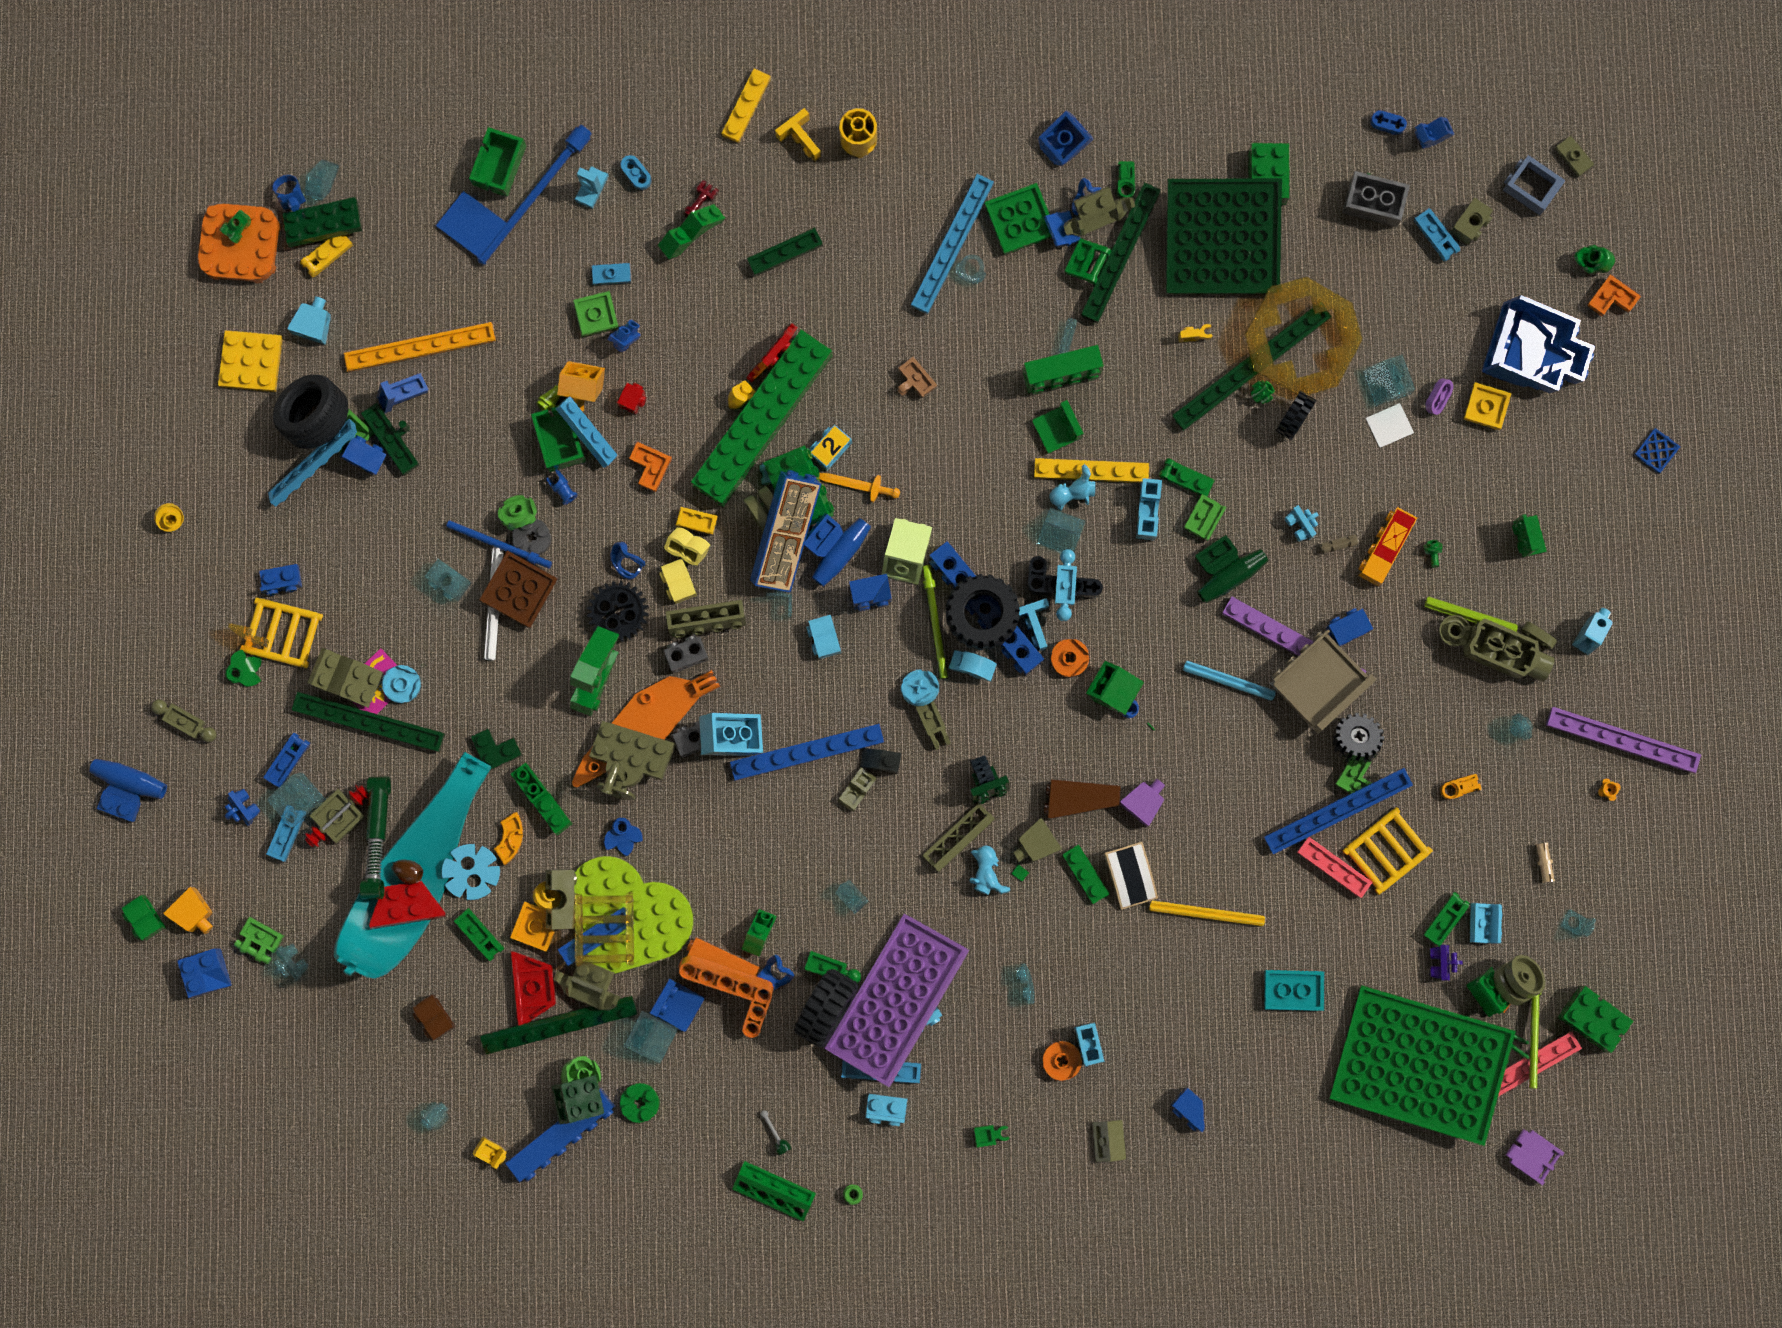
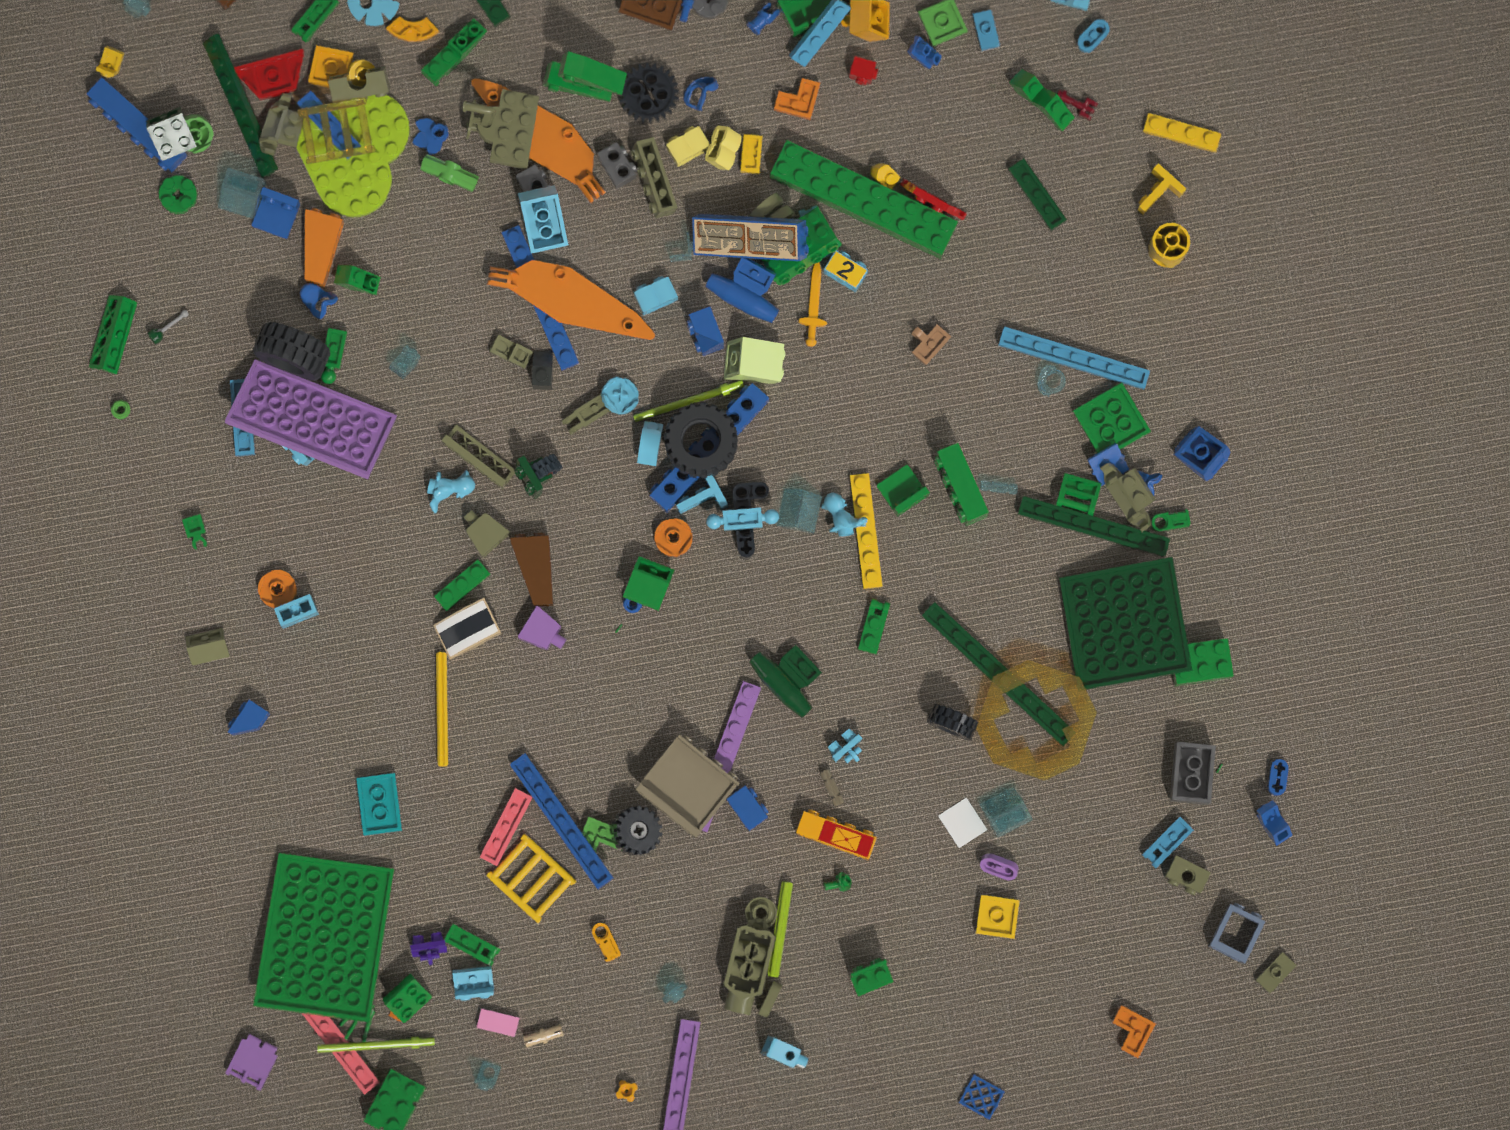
camera: 75 degrees right, 0 degrees up
(665, 822) = (449, 172): none -> bright green piece
(733, 987) = (299, 261): orange beam -> none
(813, 721) = (570, 298): none -> orange wing
(886, 1108) = (206, 428): medium azure bracket -> none
(1020, 873) = (454, 522): green window -> none
(1025, 977) = (352, 541): clear light blue slope -> none
(1148, 509) = (834, 592): medium azure arch -> none
(1190, 334) = (1021, 608): yellow plate -> none
(1204, 517) = (836, 649): bright green plate -> none
(1229, 680) = (676, 697): medium azure axle -> none
(1262, 392) = (973, 688): green gear -> none
(1519, 980) = (421, 1020): olive wheel -> none
(1526, 905) = (498, 1022): none -> bright pink tile
(1537, 347) = (1065, 958): blue panel -> none
(1595, 259) = (1168, 1005): green head -> none

